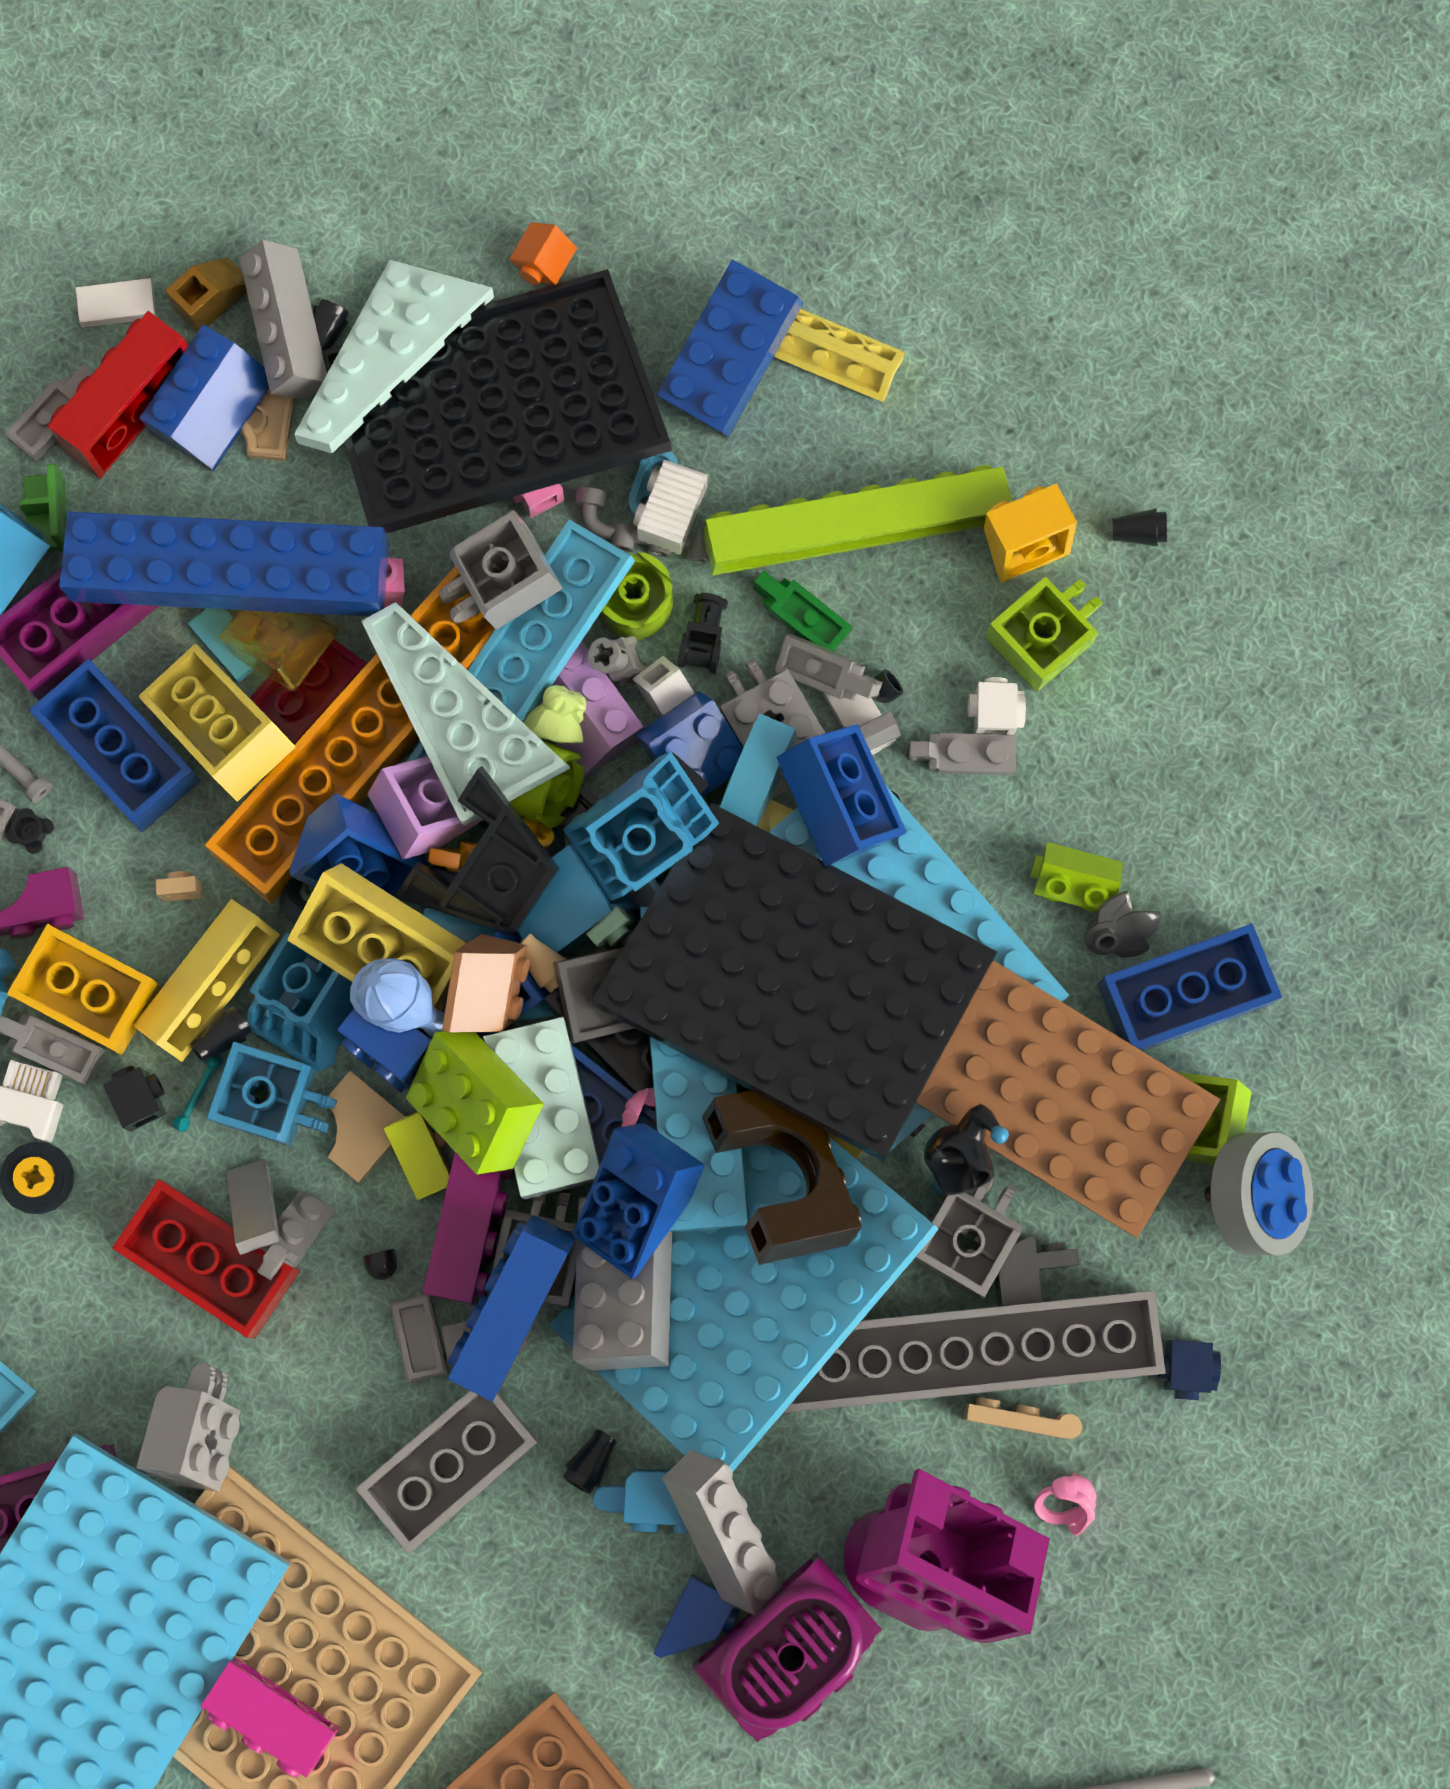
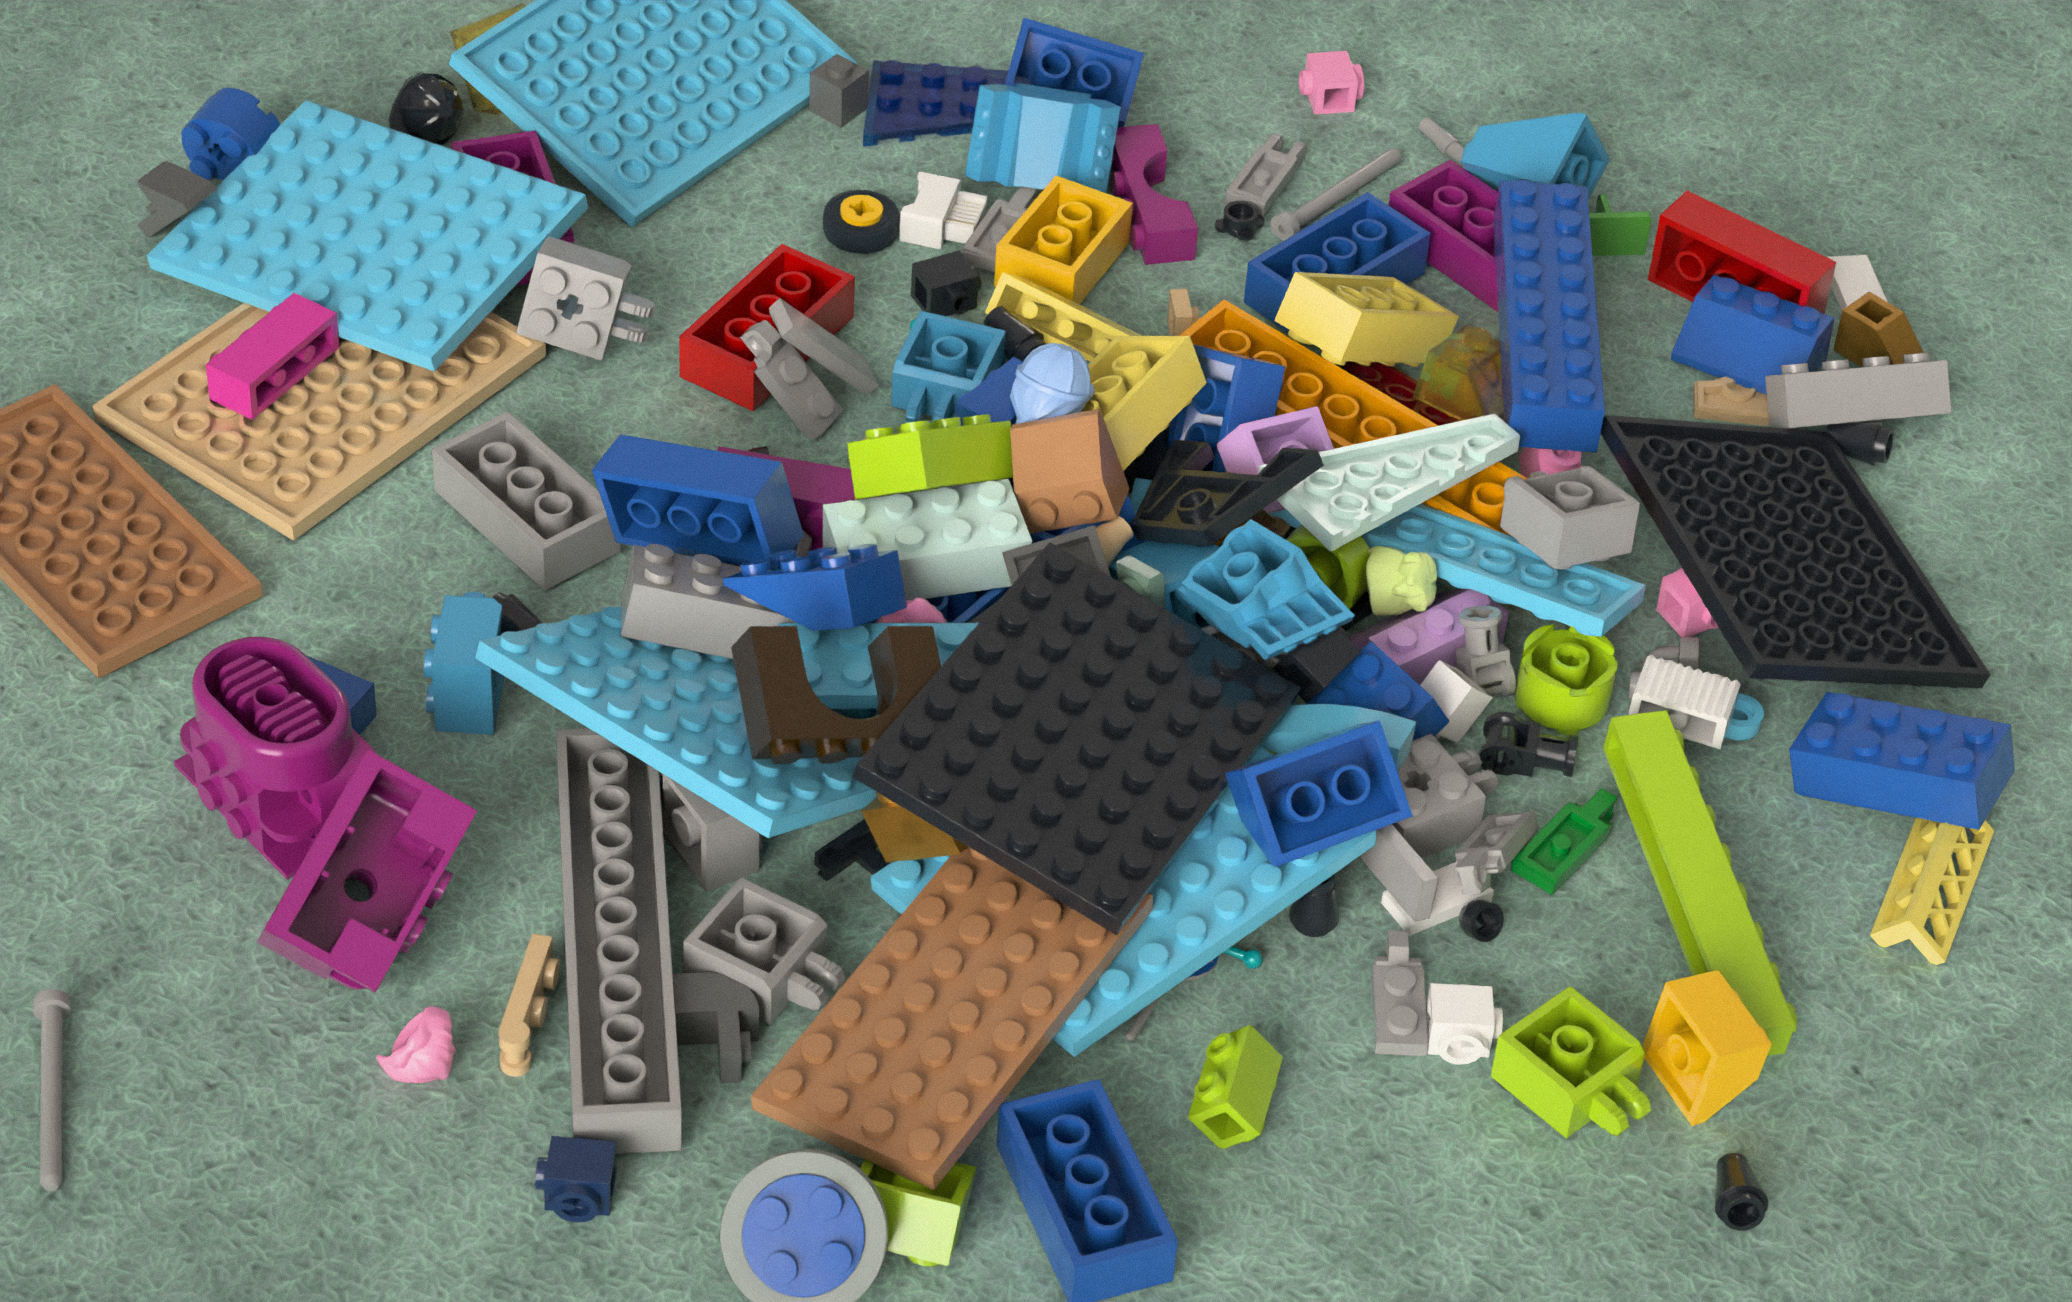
camera: 90 degrees right, 35 degrees down
(388, 344) = (1841, 472): light aqua wing -> none
(542, 254) = (1992, 611): orange brick -> none
(723, 1531) = (427, 655): light grey brick -> none
(959, 1153) = (867, 907): black piece -> none
(1123, 926) = (1166, 1125): dark grey plate -> none

